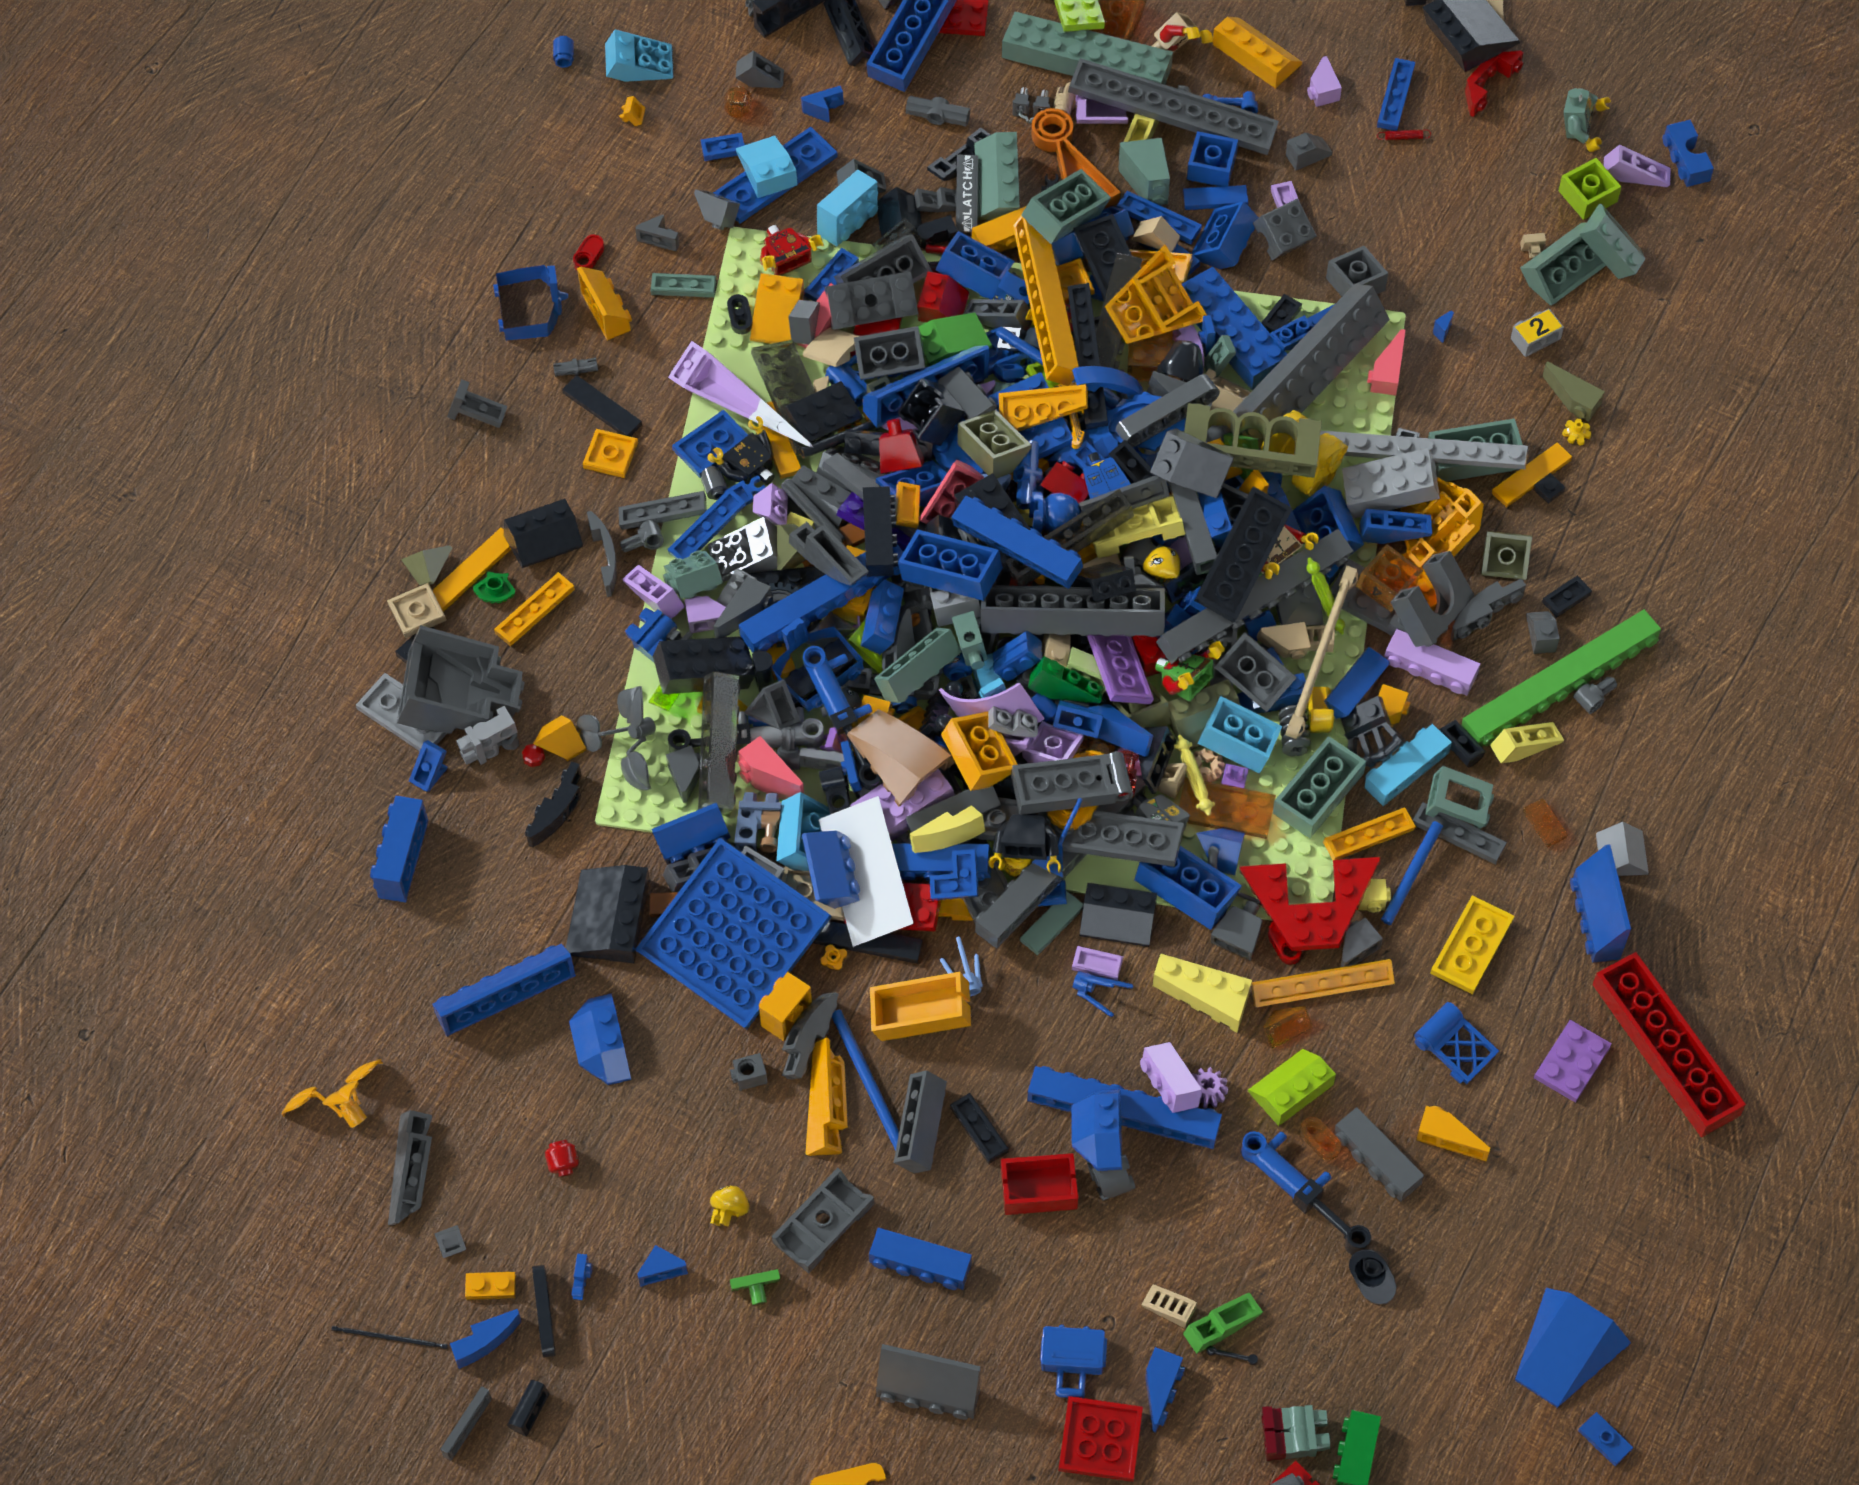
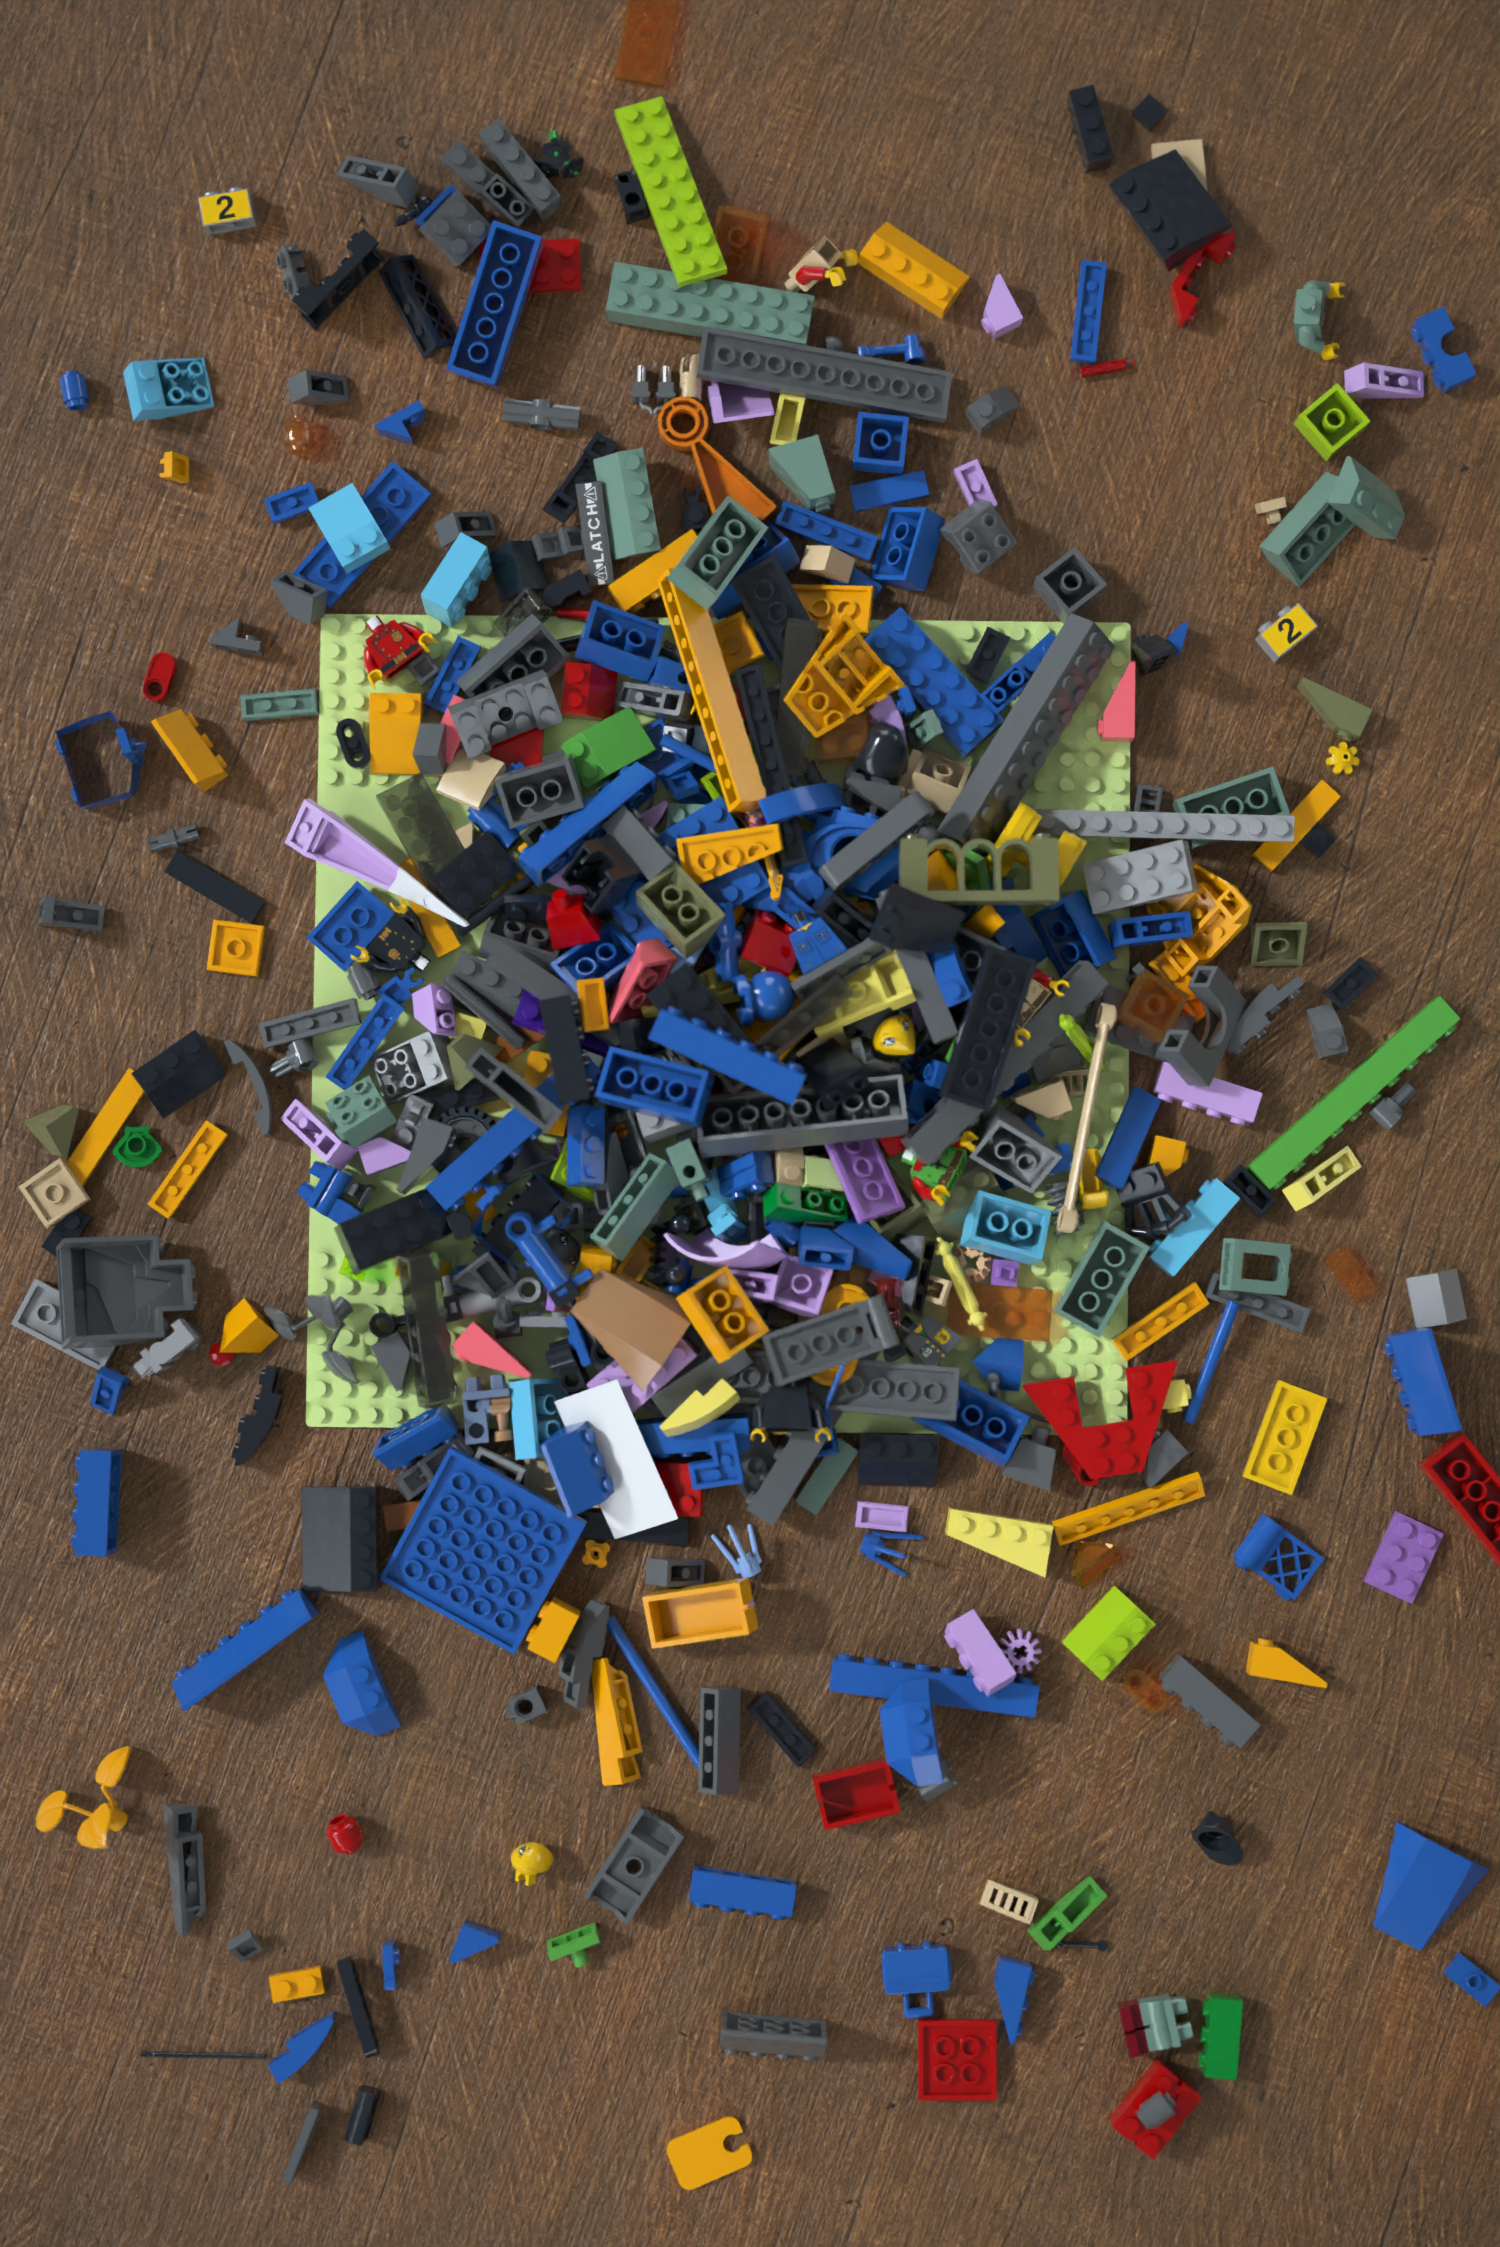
camera: 10 degrees left, 25 degrees up
(807, 270) = (423, 668): none -> dark grey tile
(896, 971) = (674, 1571): none -> dark grey slope
(1018, 724) = (754, 1276): light grey slope -> none
(1303, 1191) = (1128, 1750): piece -> none
(1421, 330) = (1151, 653): none -> black slope

